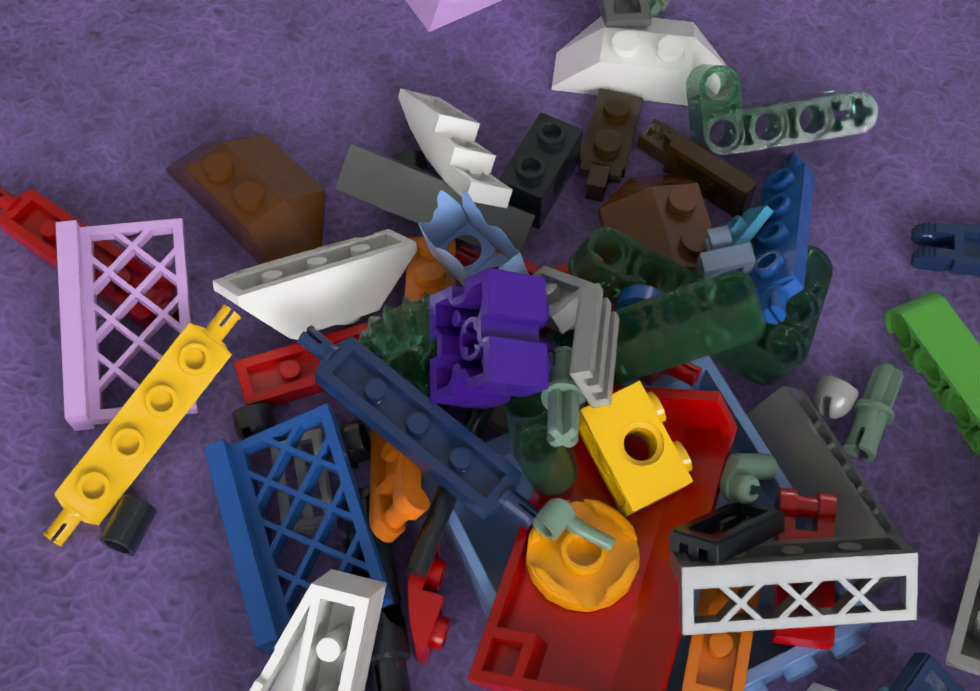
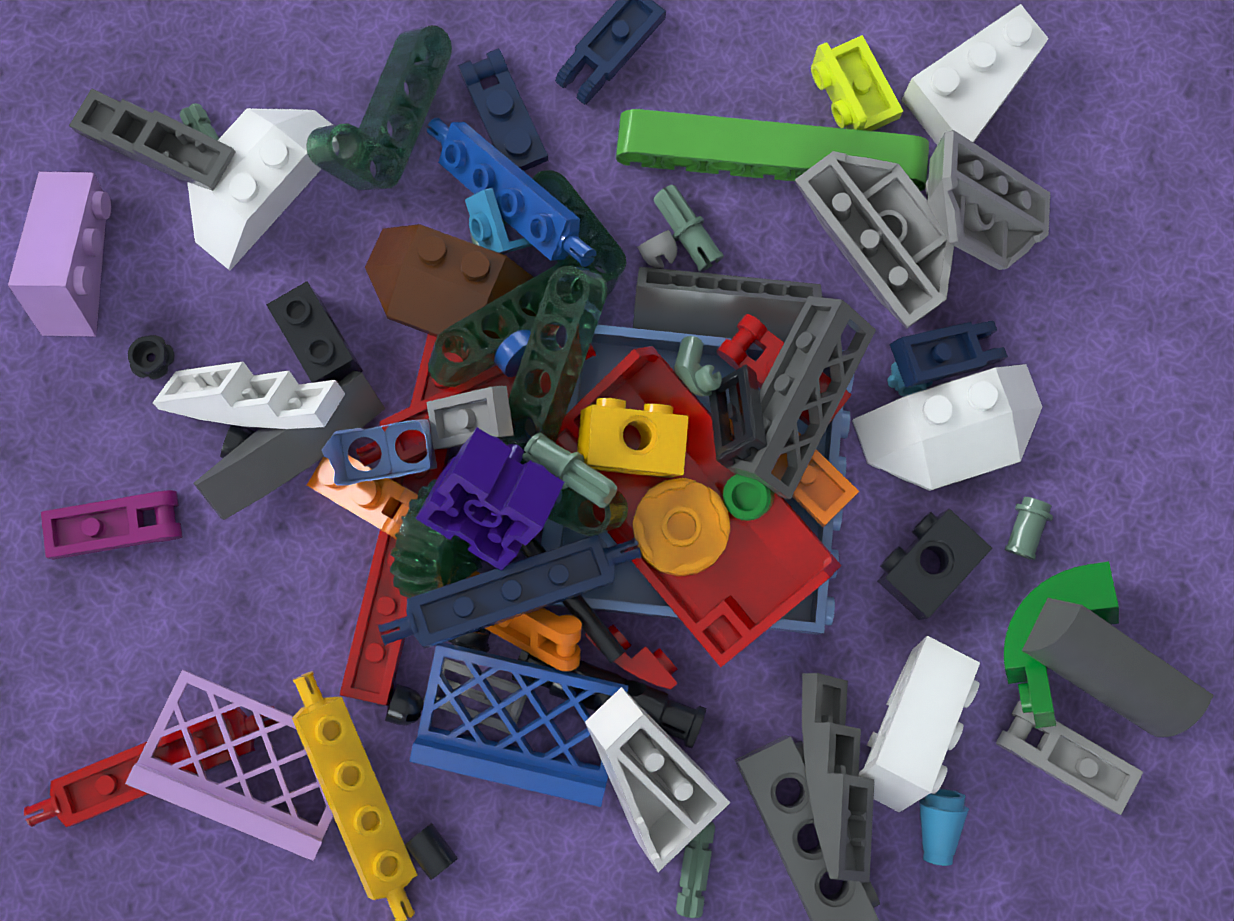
camera: 55 degrees left, 20 degrees up
(255, 195) = (183, 588): reddish brown wedge -> none
(278, 116) = (109, 524): none -> magenta plate
(321, 284) = (312, 589): white wedge -> none
(435, 62) = (139, 353): none -> black plate
(559, 515) = (649, 531): sand green hand -> none
(594, 346) = (546, 421): light grey tile -> none
(608, 141) = (316, 258): dark brown hinge -> none
(655, 598) = (747, 497): none -> green tile
(718, 181) = (392, 208): dark brown hinge -> none
(723, 256) = (511, 259): sand blue tile -> none
(850, 205) = (503, 111): none -> dark blue plate

